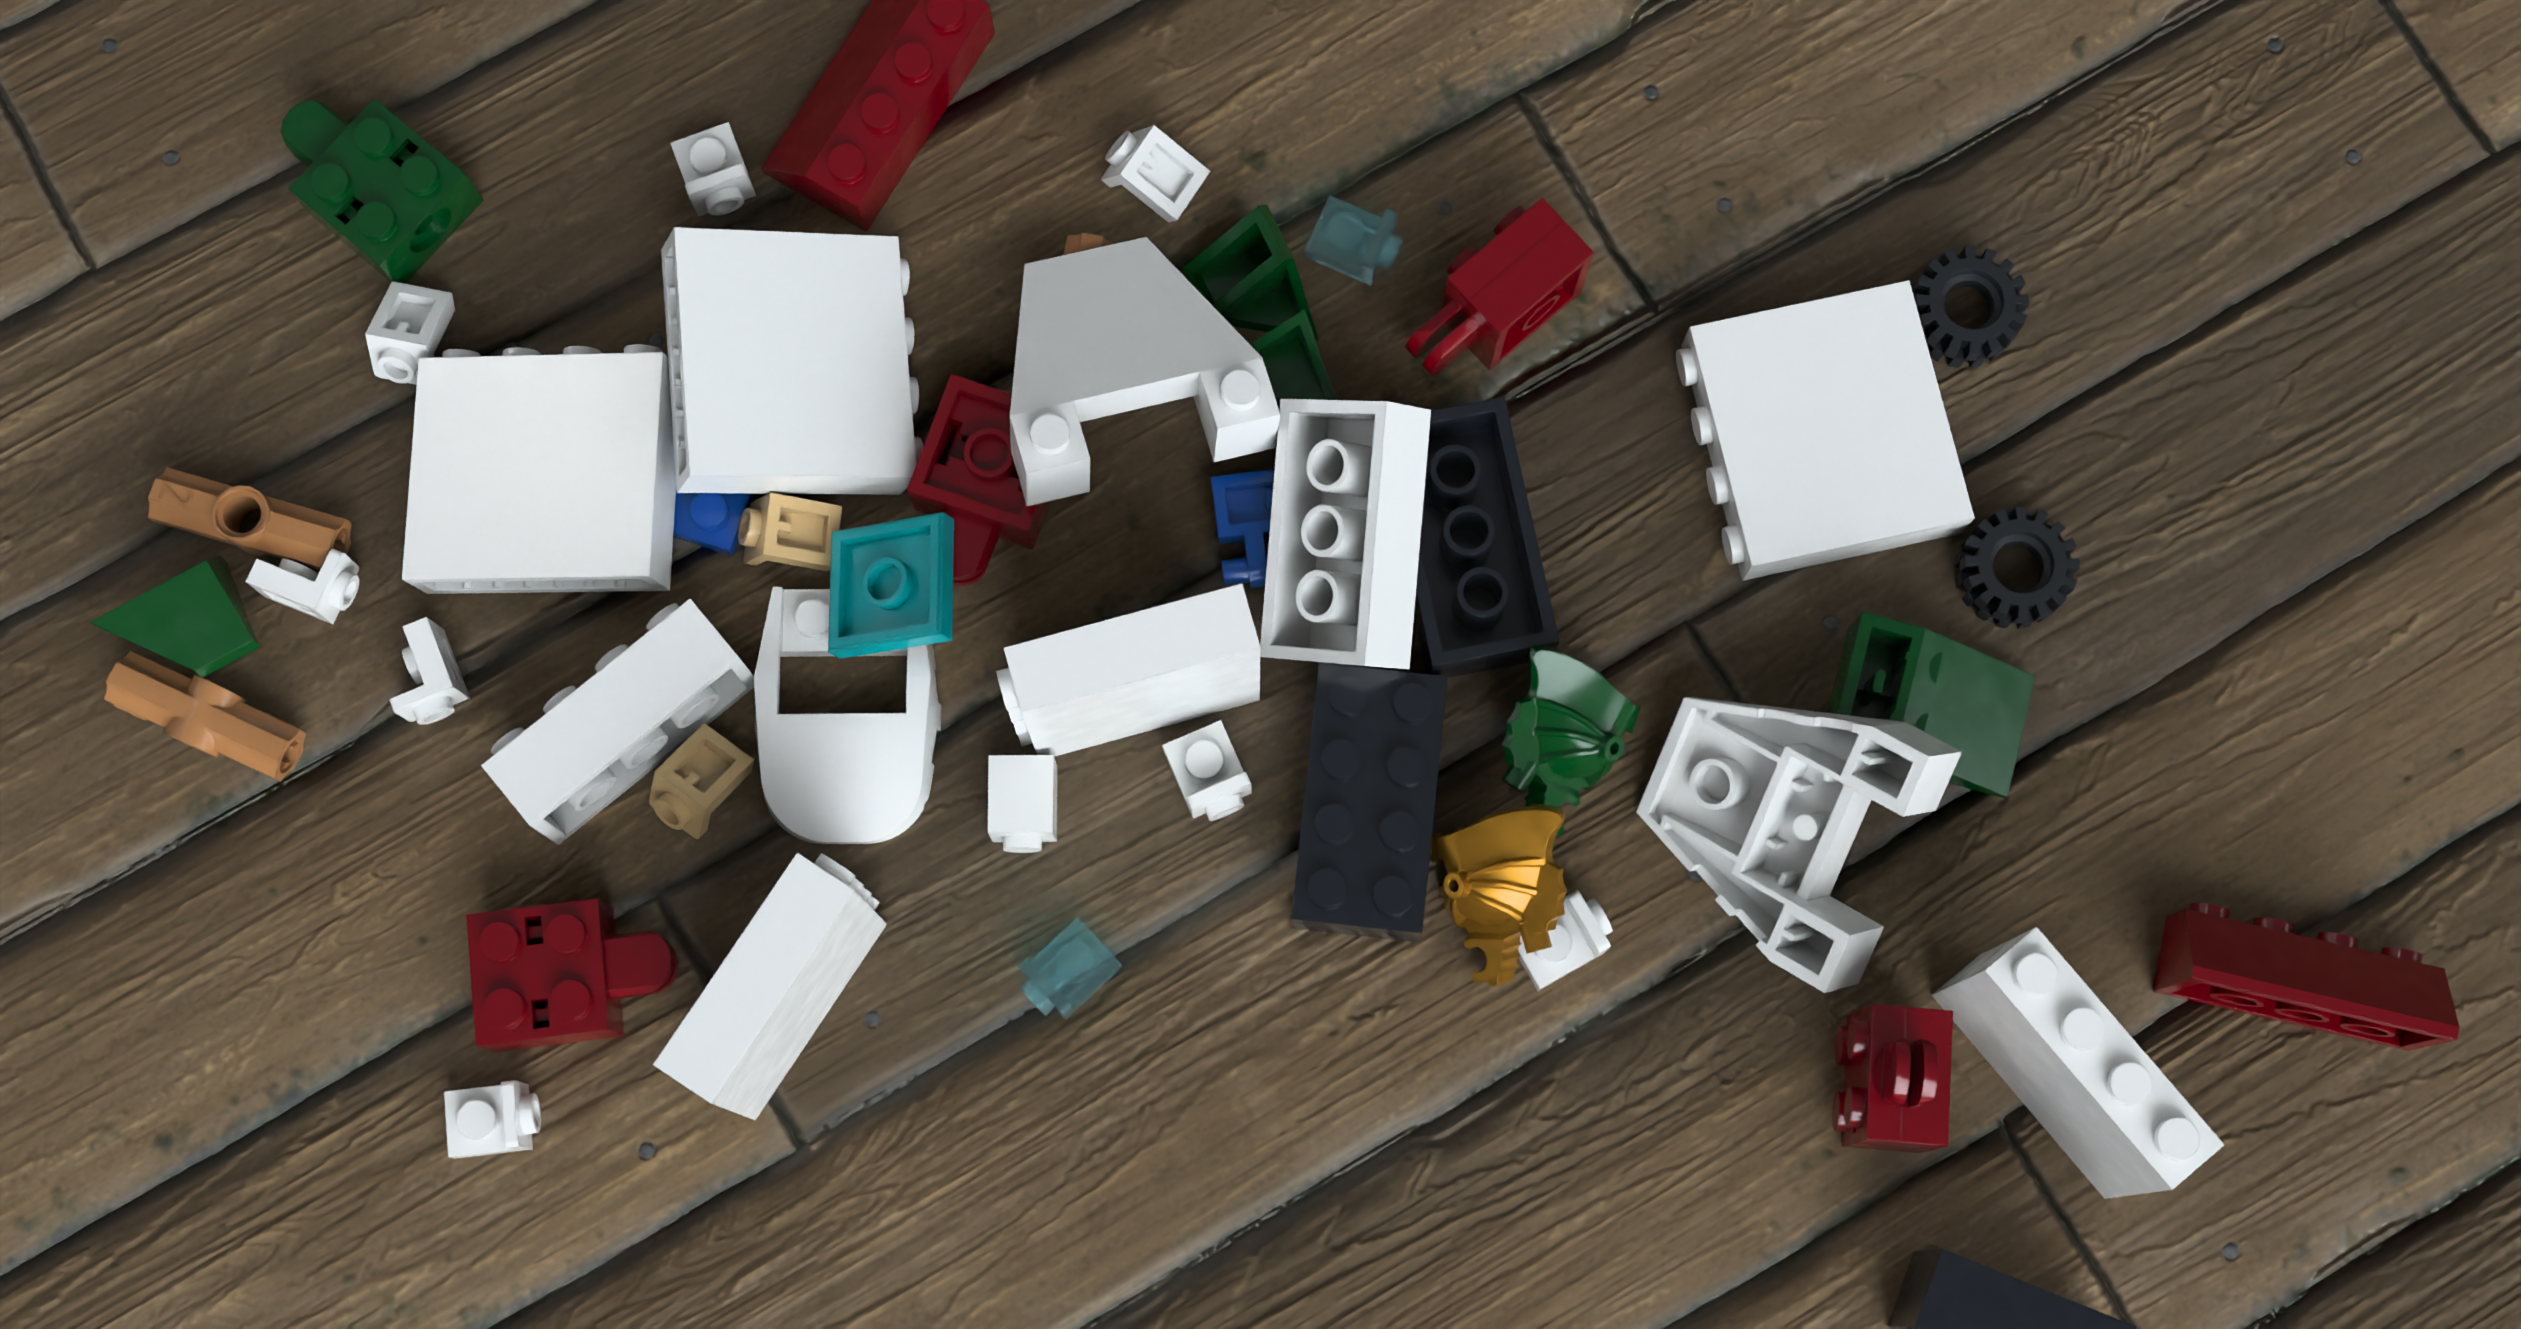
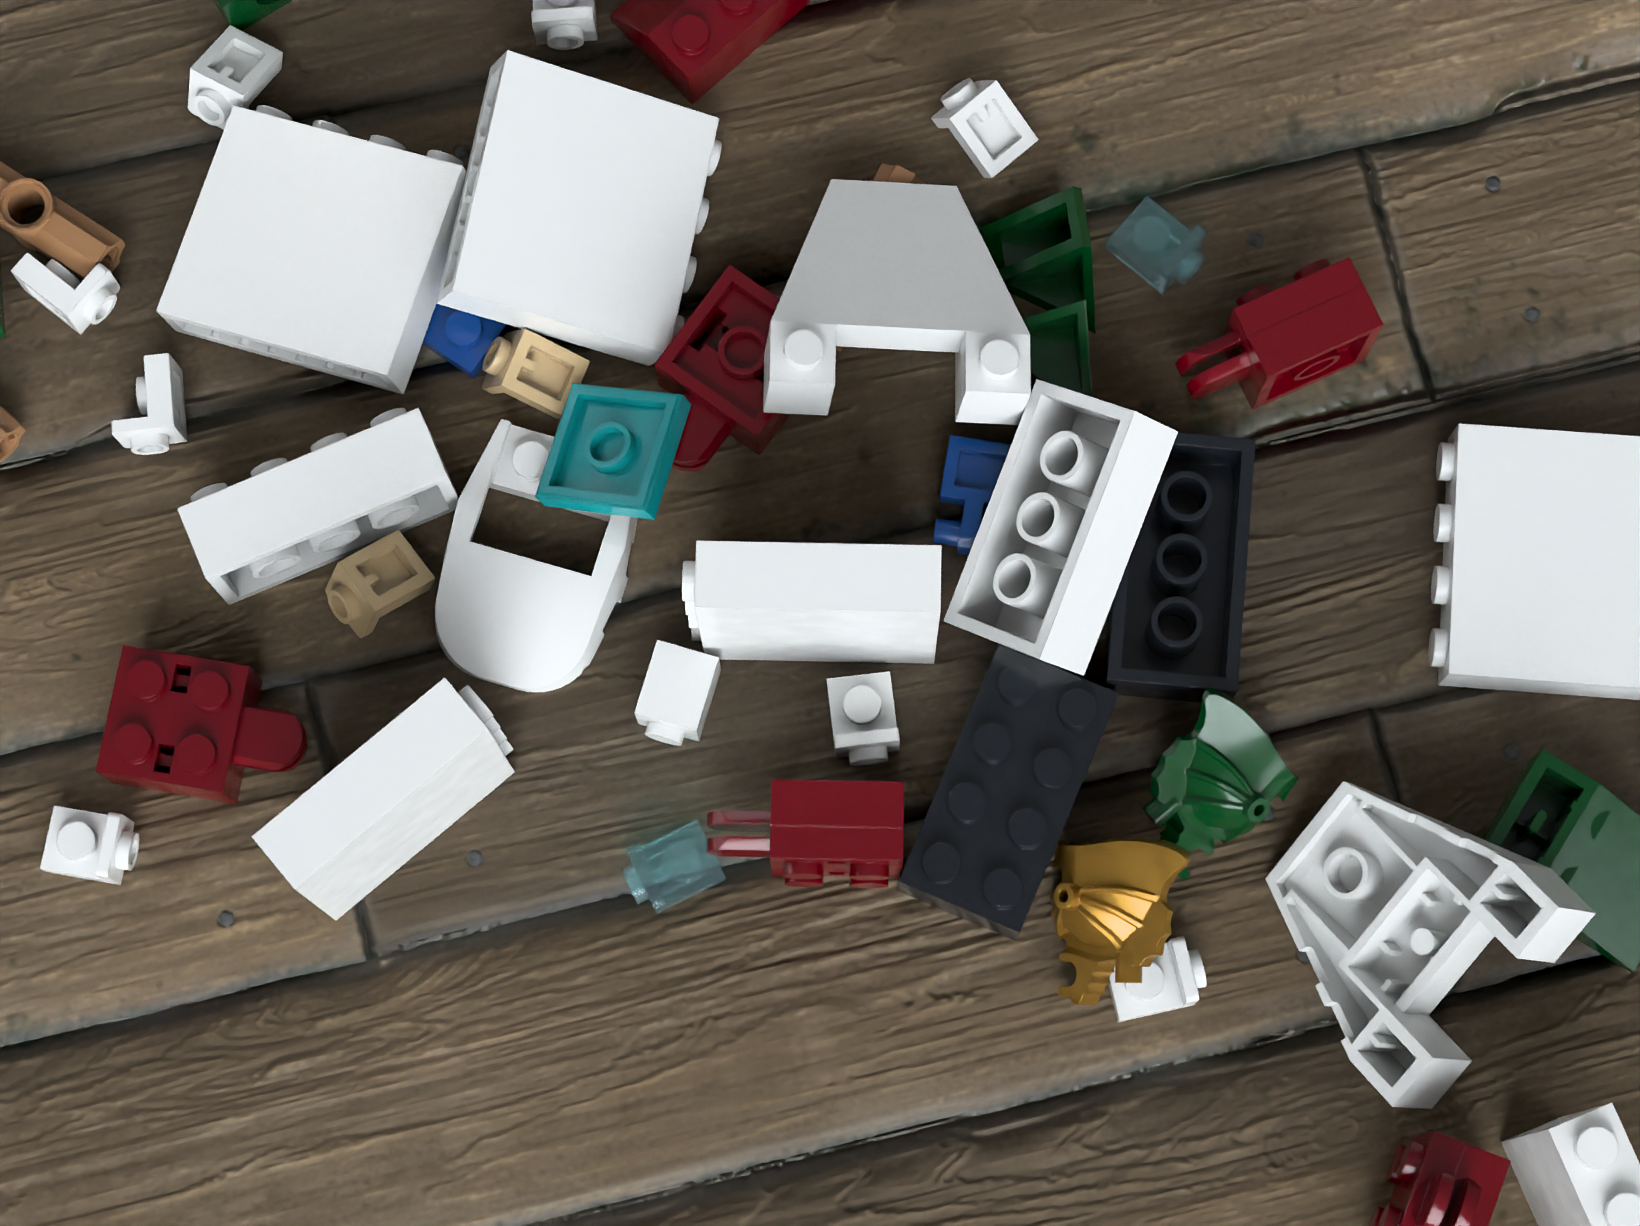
camera: 20 degrees right, 0 degrees up
(1203, 893) = (821, 831): none -> dark red brick

